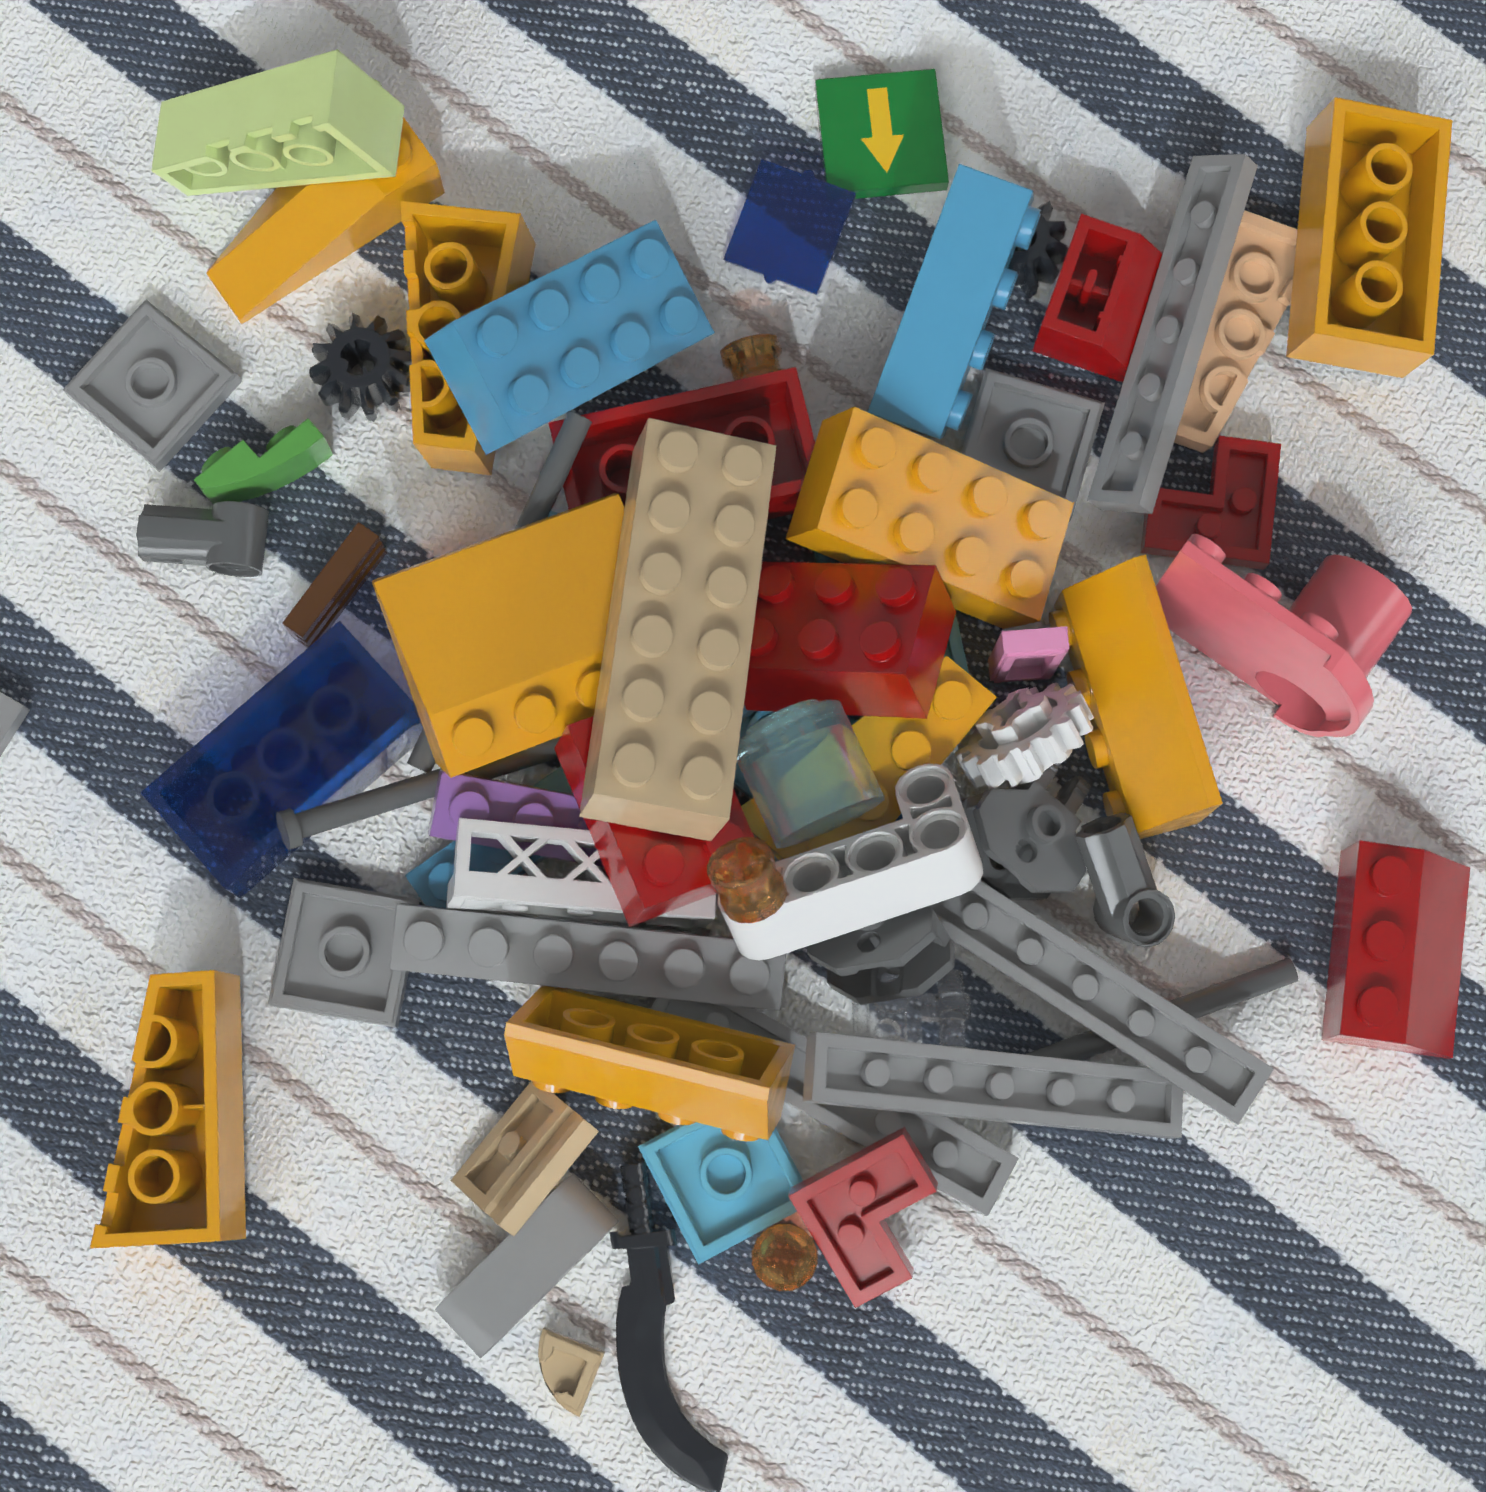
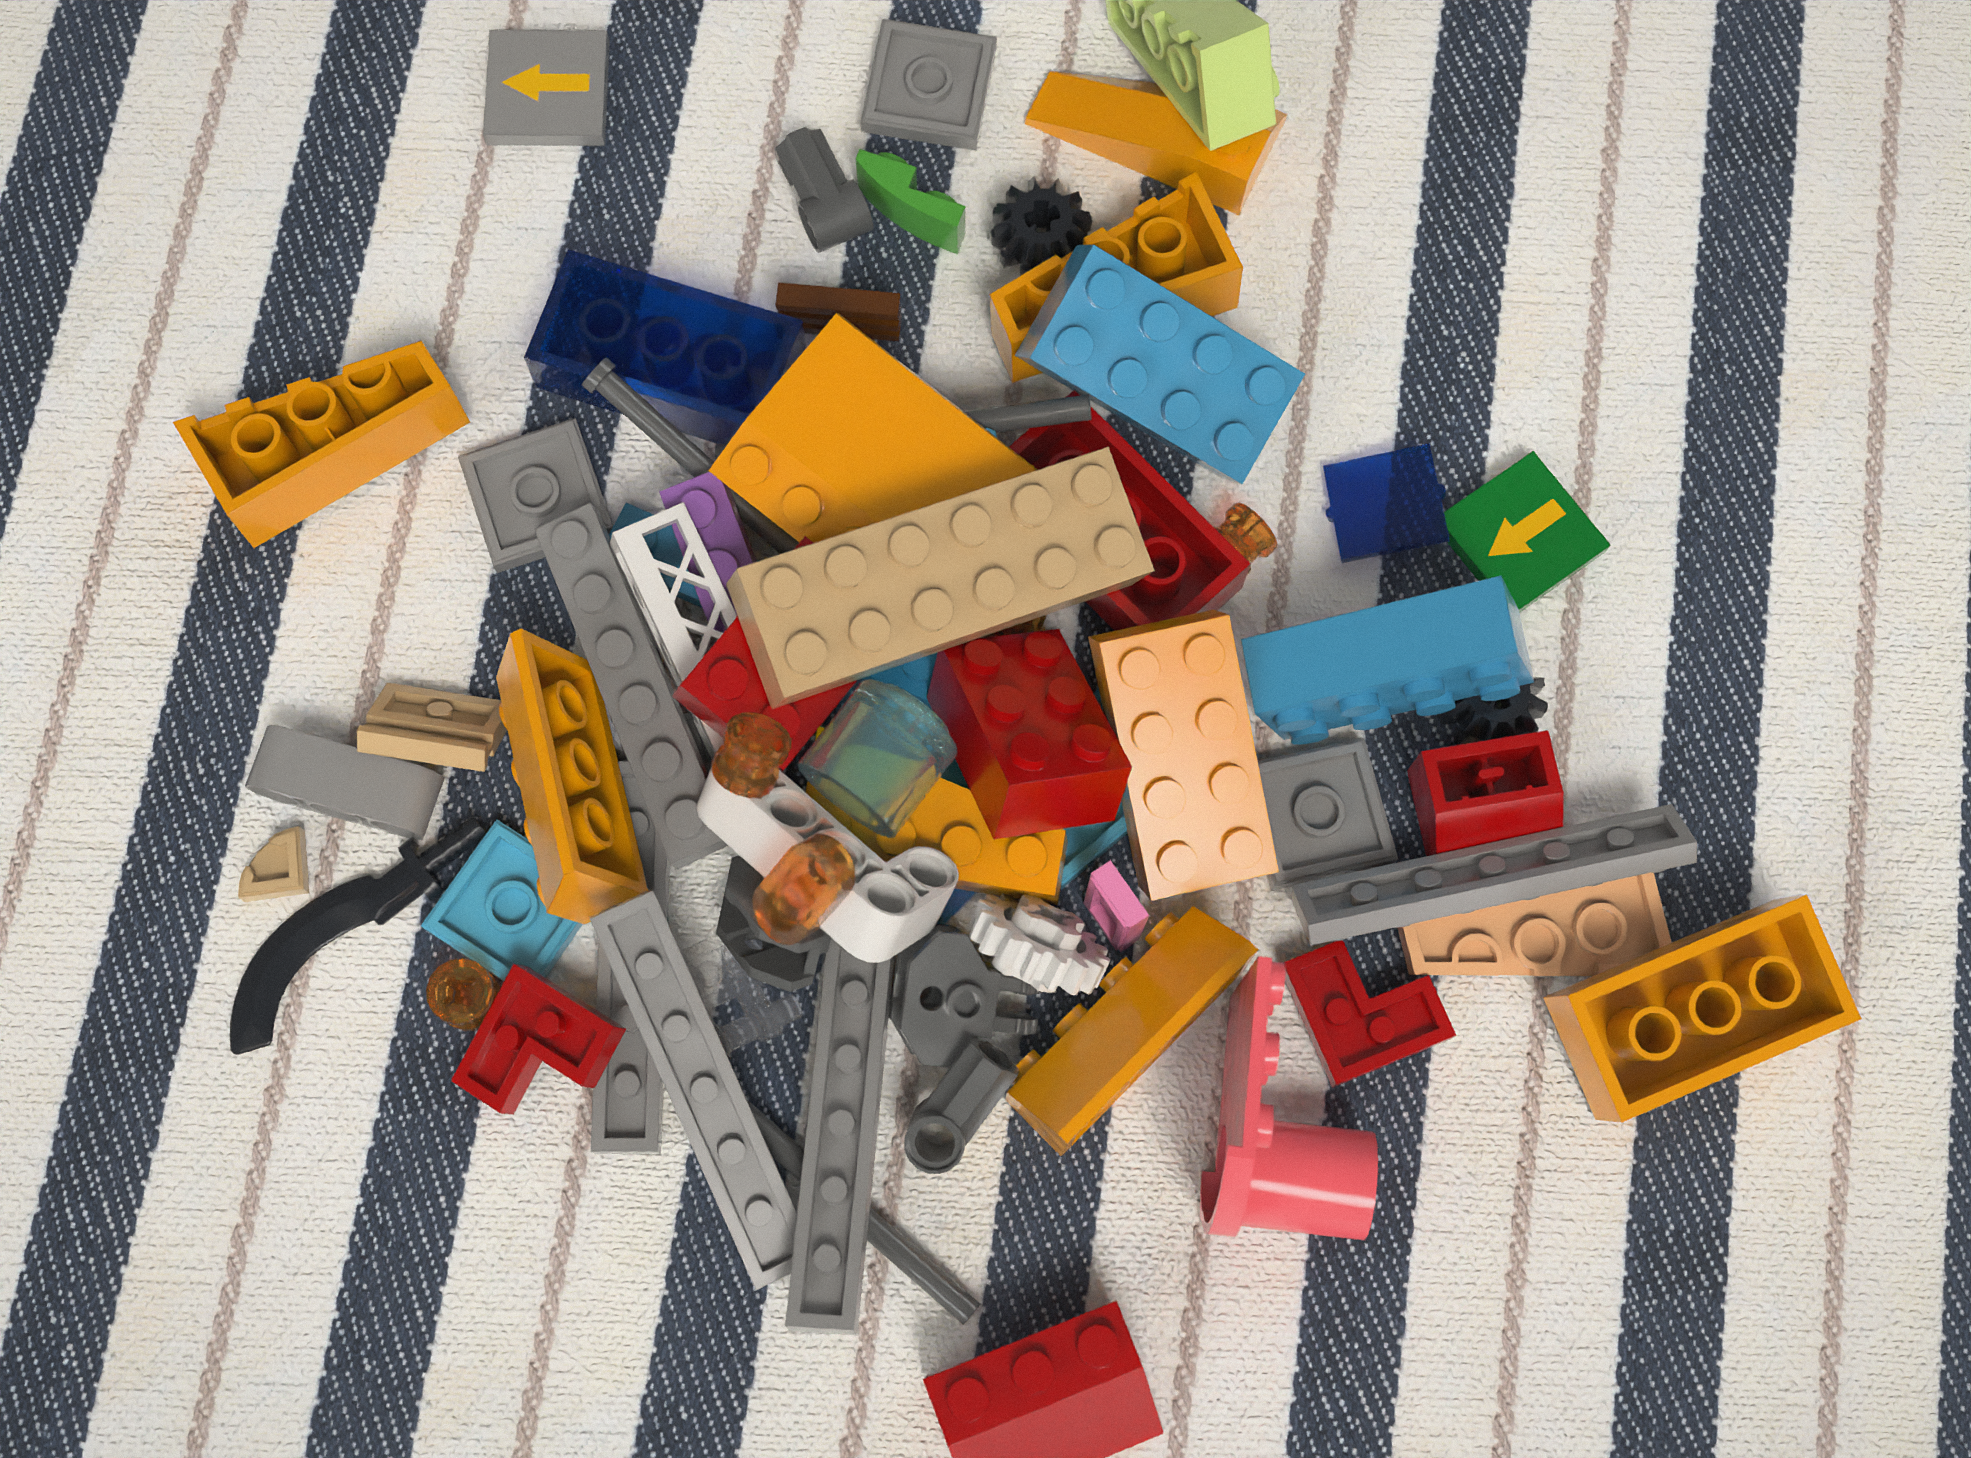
camera: 60 degrees right, 5 degrees down
(898, 898) = (803, 889): none -> clear orange plate

